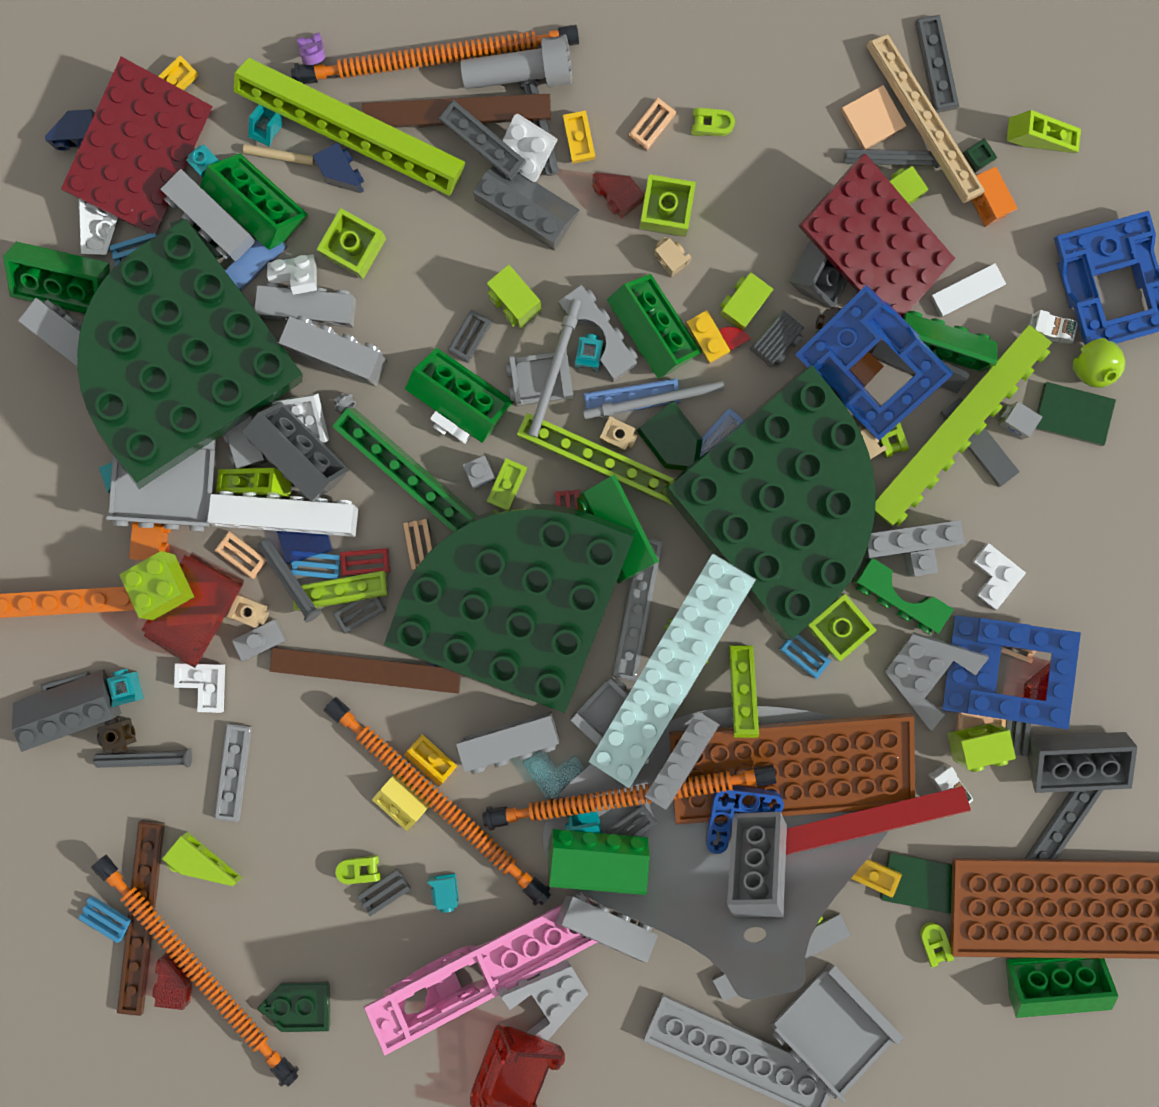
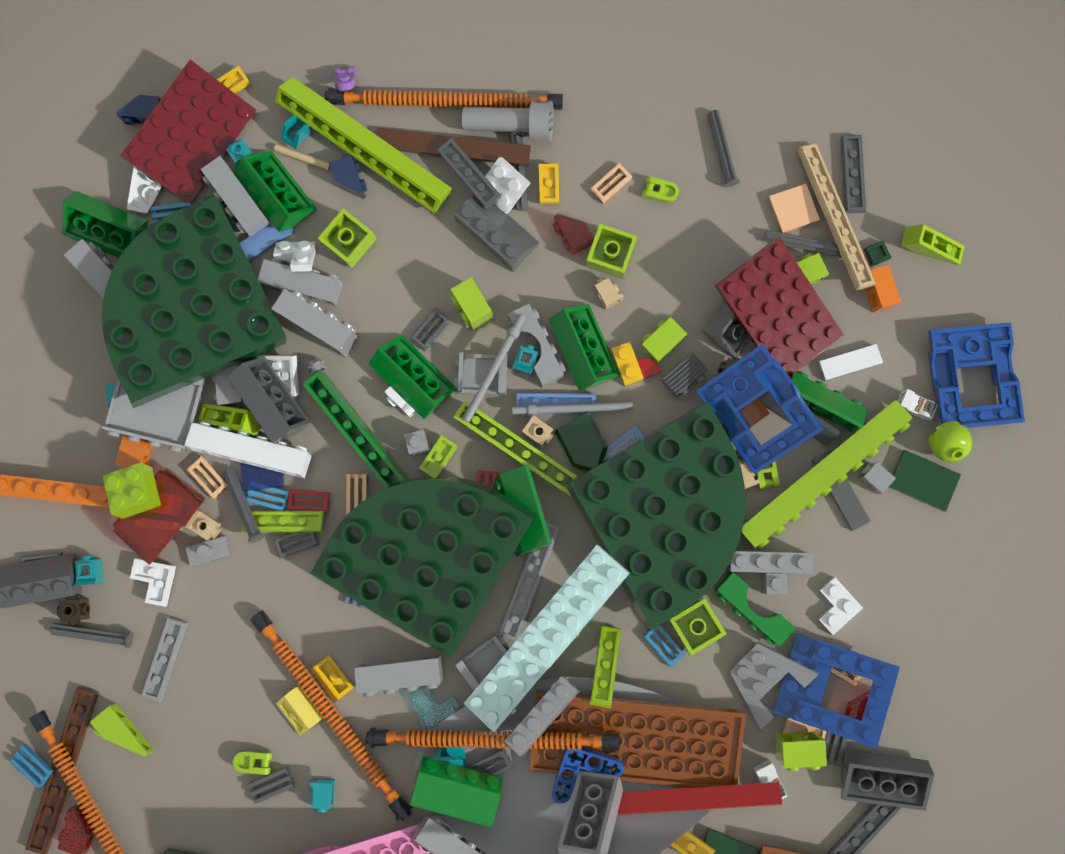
camera: 15 degrees right, 5 degrees down
(364, 670) = (291, 592): reddish brown tile -> none
(778, 59) = (722, 148): none -> dark grey axle

